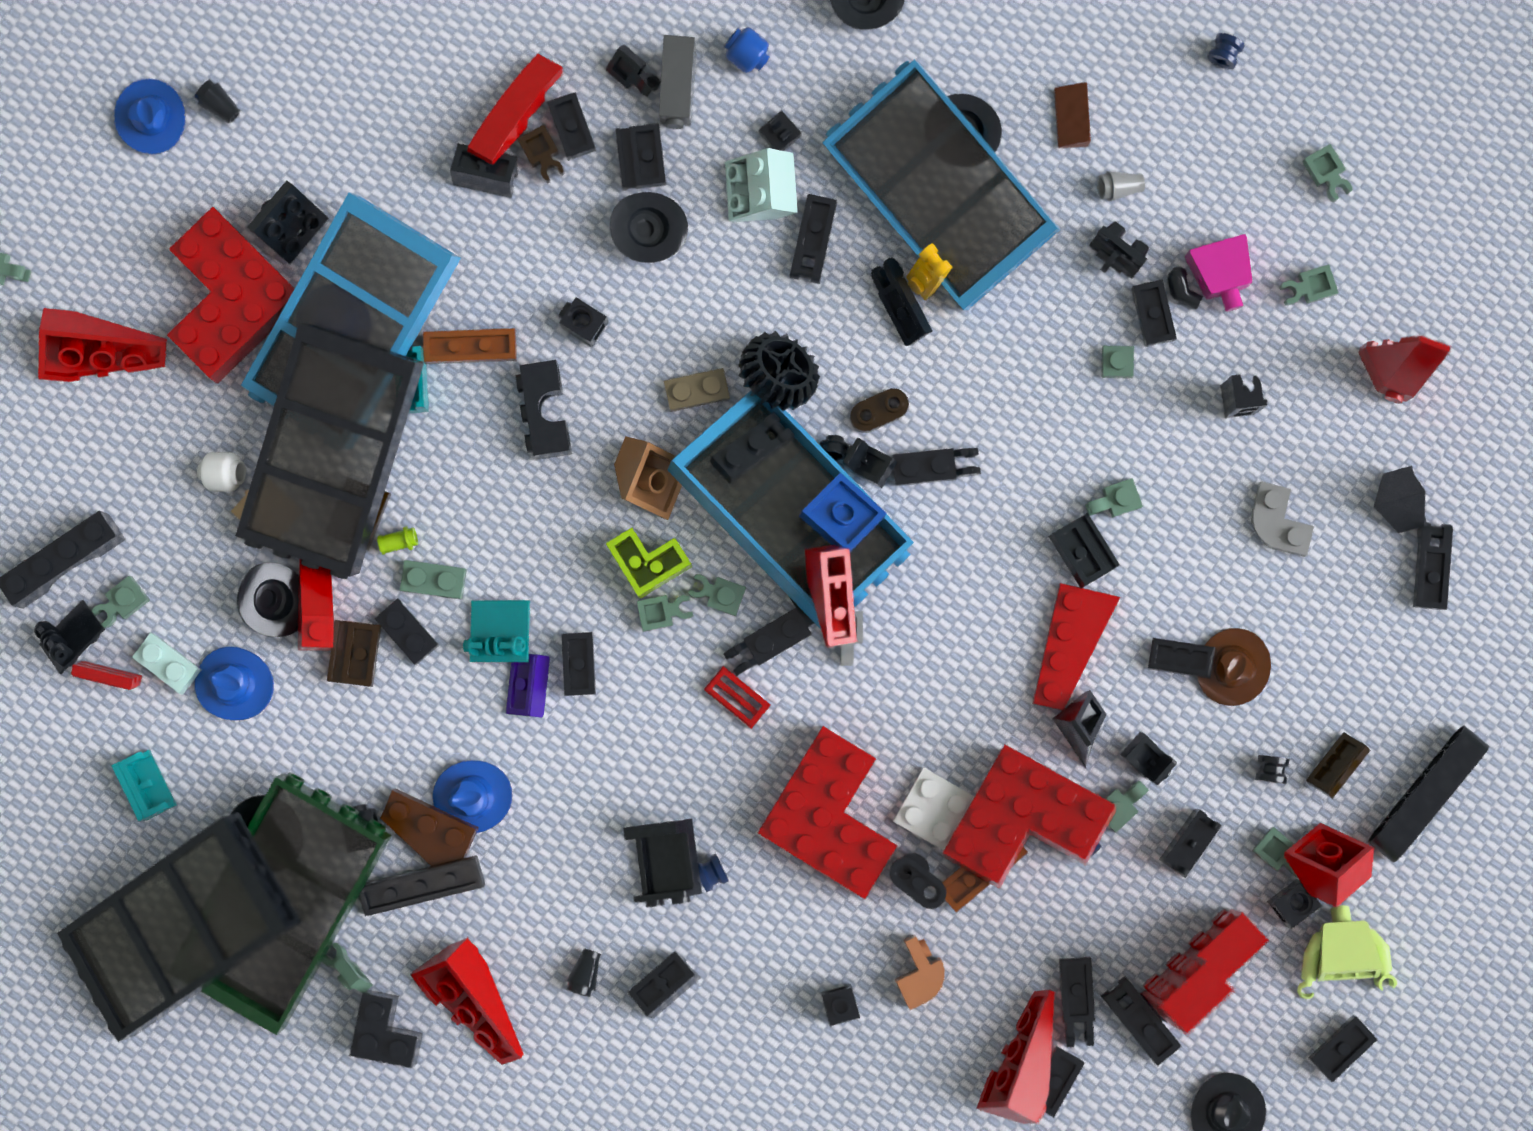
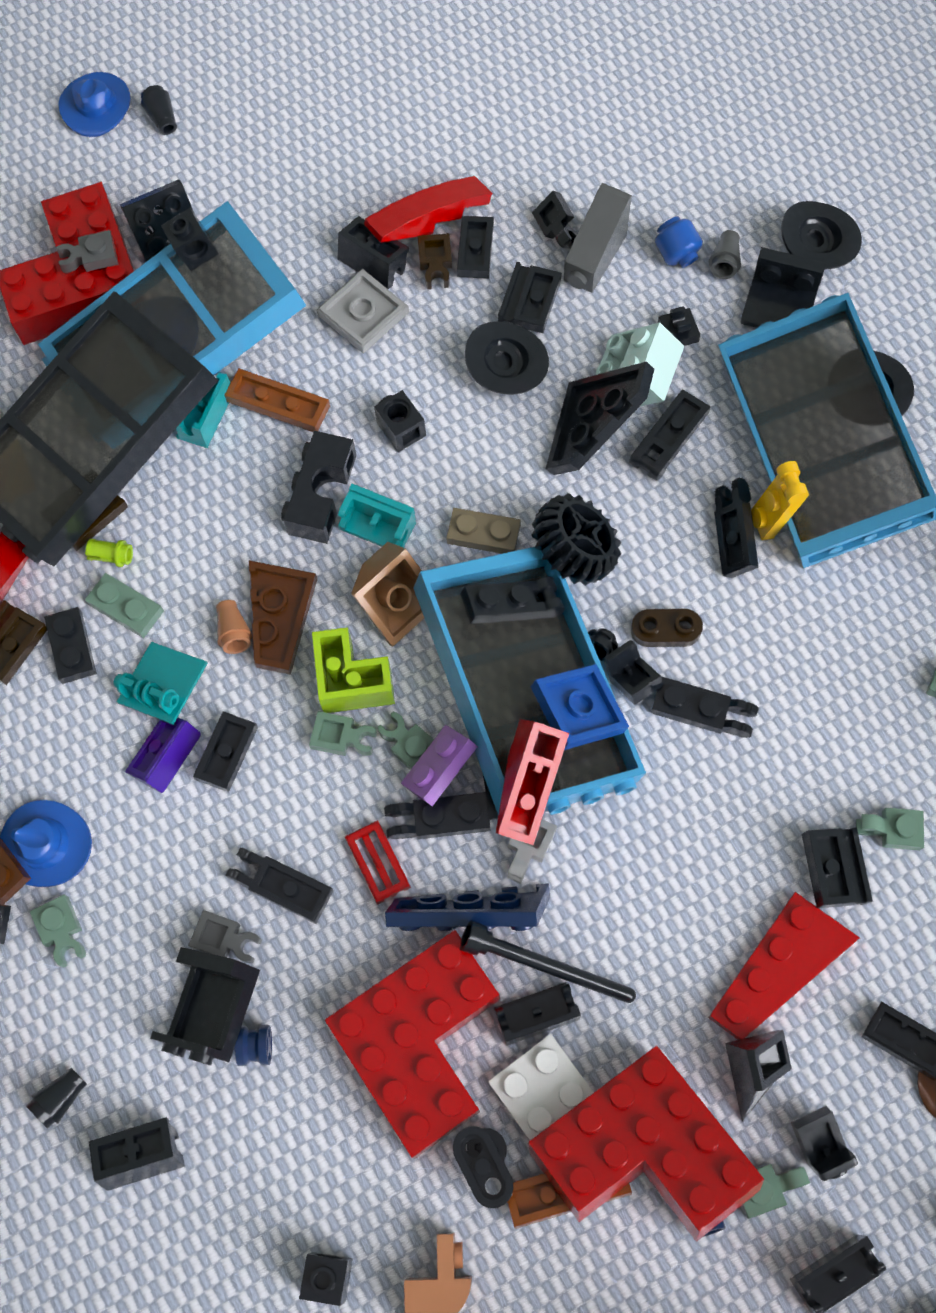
camera: 25 degrees right, 15 degrees down
(249, 282) = (93, 252): none -> dark grey plate
(339, 247) = (190, 239): none -> black brick
(502, 230) = (363, 311): none -> light grey plate
(516, 851) = (56, 925): none -> sand green plate
(532, 561) = (232, 629): none -> nougat cone
(565, 533) = (279, 613): none -> reddish brown wing
(605, 418) = (376, 517): none -> teal hinge
(644, 806) = (219, 936): none -> dark grey plate
(675, 747) = (283, 886): none -> black hinge
(746, 250) = (594, 412): none -> black plate
(753, 605) = (439, 765): none -> medium lavender bracket
(792, 44) = (726, 256): none -> dark grey cone
(826, 704) = (502, 909): none -> dark blue wing
(843, 726) = (478, 940): none -> black piece
(854, 65) = (781, 286): none -> black bracket
(907, 757) = (537, 1013): none -> black hinge

